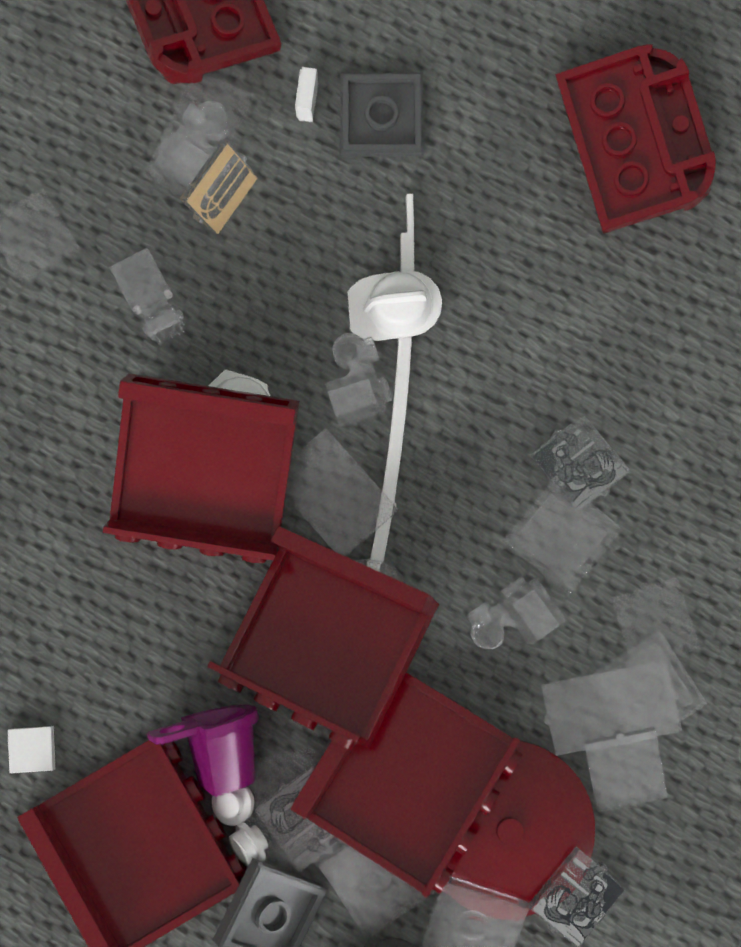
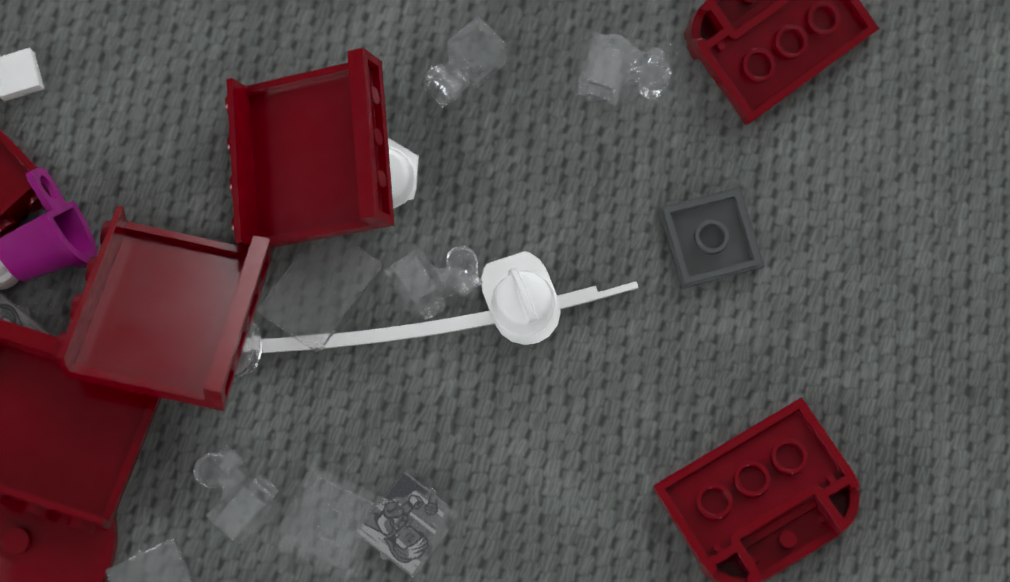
camera: 75 degrees right, 5 degrees down
(219, 187) = (589, 99): piece -> none
(306, 94) = (707, 159): white tile -> none

